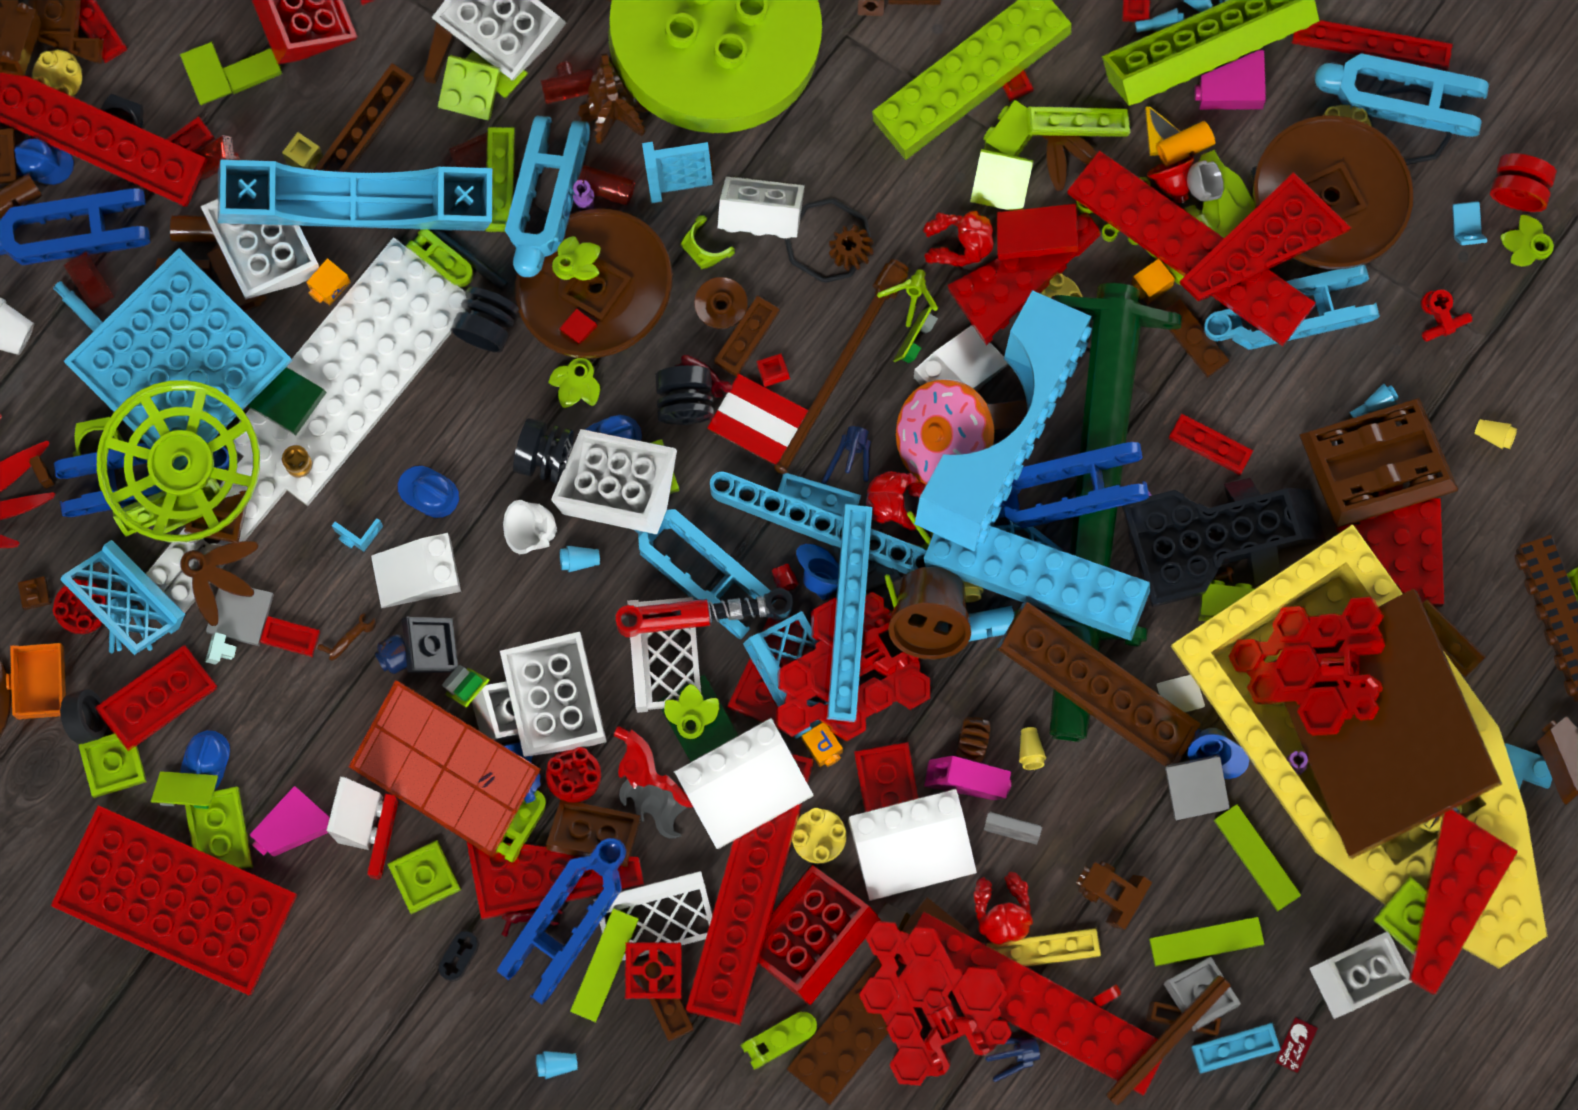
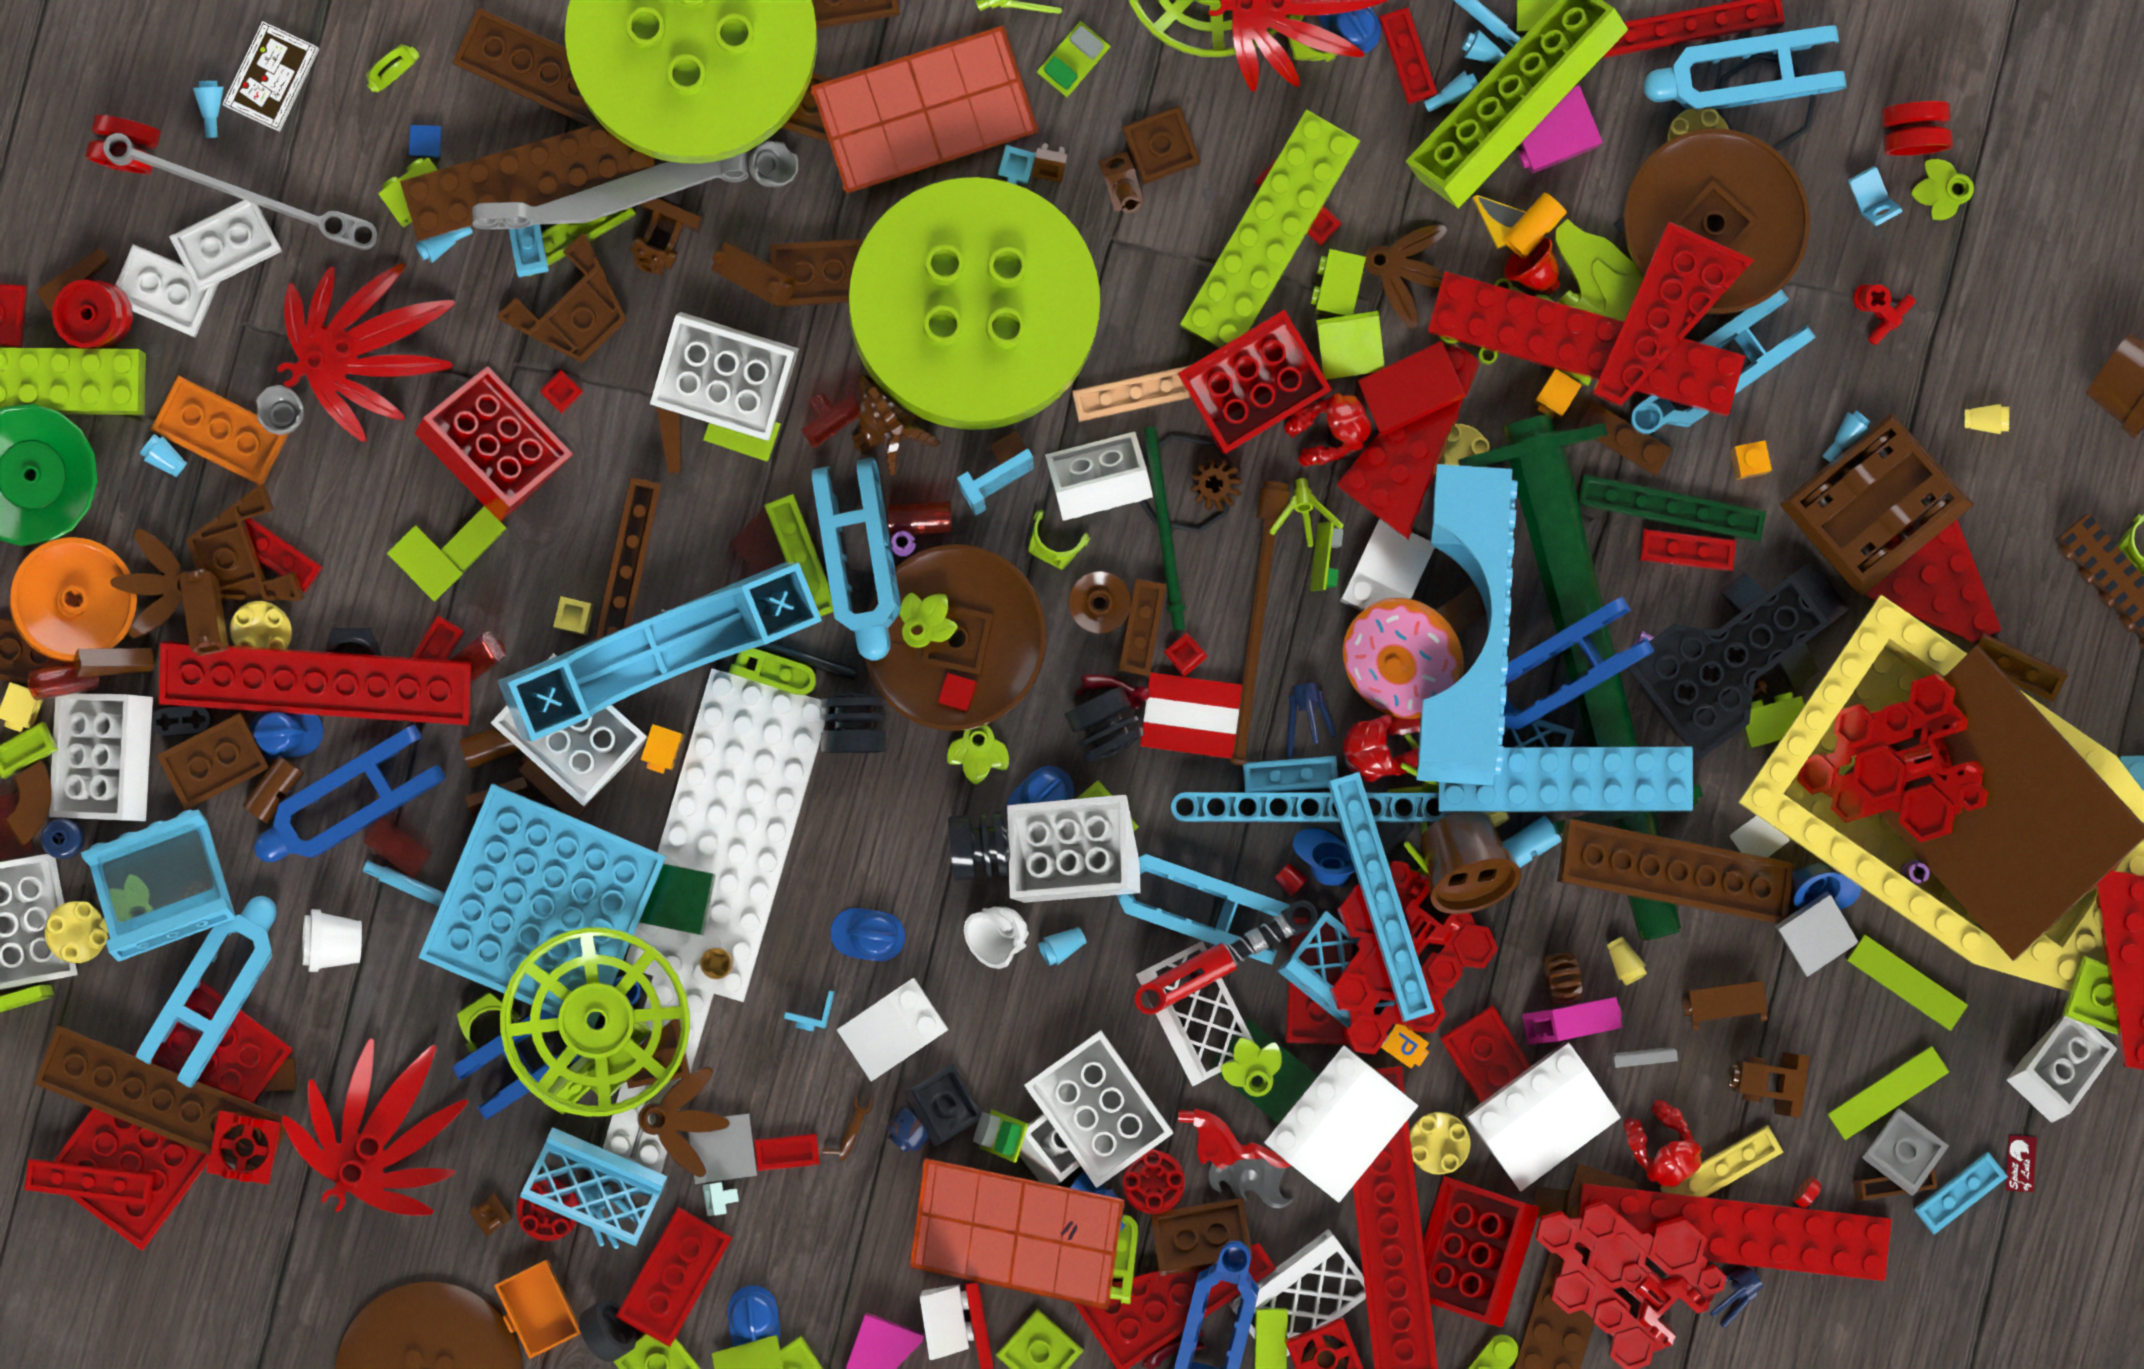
camera: 25 degrees left, 10 degrees up
(41, 472) = (441, 1081): reddish brown tile -> none
(469, 87) = (724, 466): lime plate -> none
(780, 330) = (1176, 607): none -> dark green bar
(817, 156) = (1129, 394): none -> light nougat tile
(912, 178) = (1254, 382): none -> red slope
(1077, 121) = (1407, 245): lime tile -> none
(1099, 813) = (1725, 1002): none -> reddish brown brick
(1168, 1040) = (1891, 1218): reddish brown axle -> none
(1205, 181) = (1574, 263): light grey hair -> none
(1211, 406) = (1671, 508): none -> dark green tile
(1289, 391) = (1750, 460): none -> light orange brick

